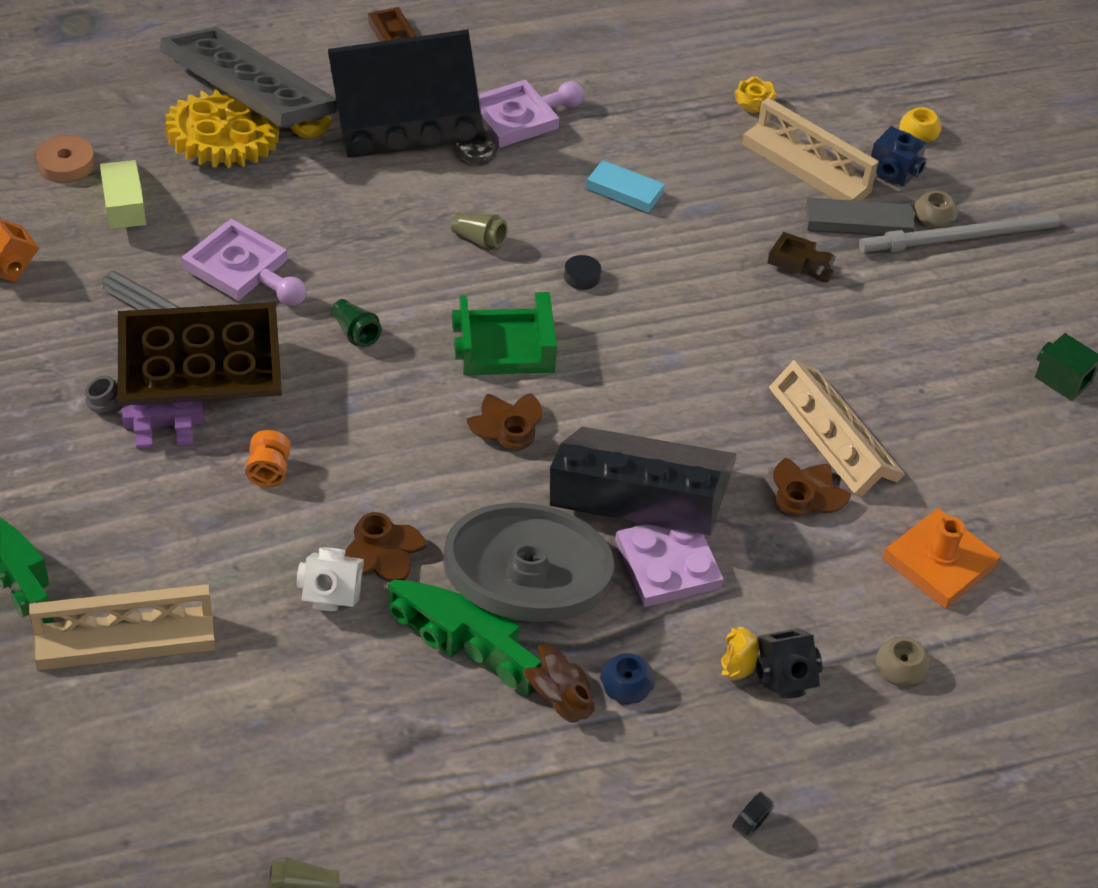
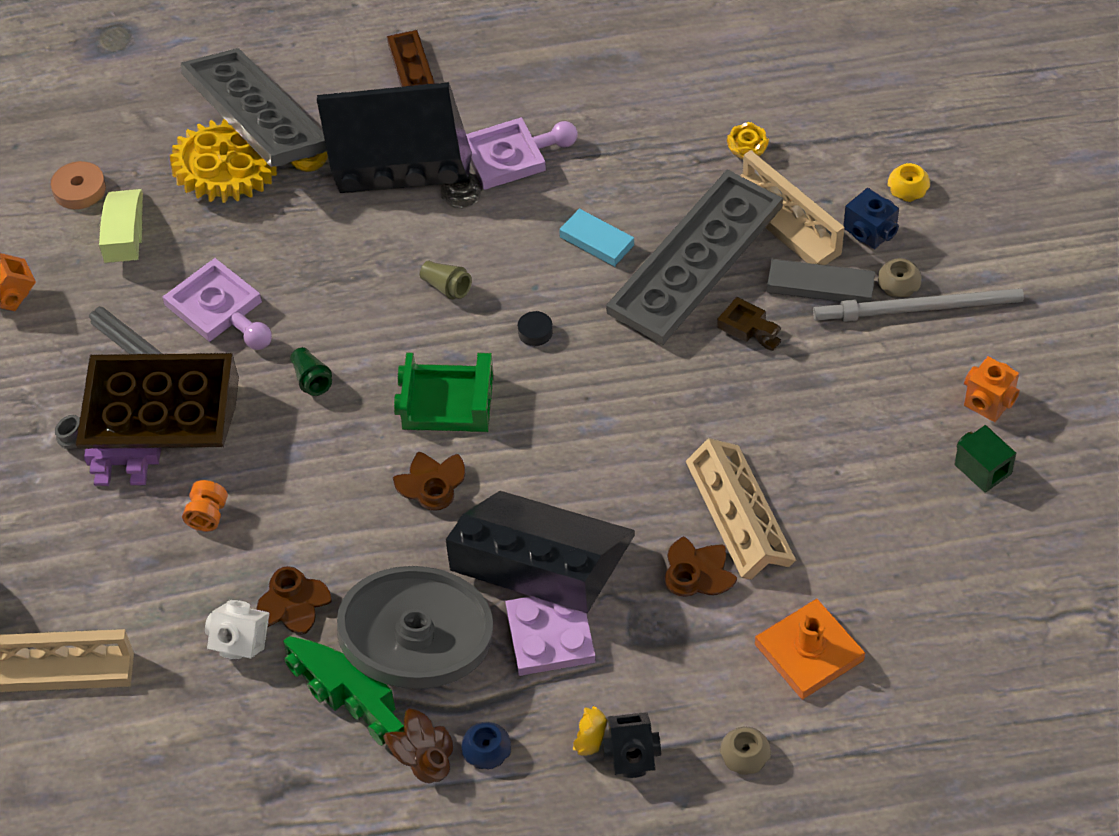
camera: 15 degrees right, 5 degrees up
(731, 198) = (694, 256): none -> dark grey plate
(1062, 296) = (991, 388): none -> orange brick

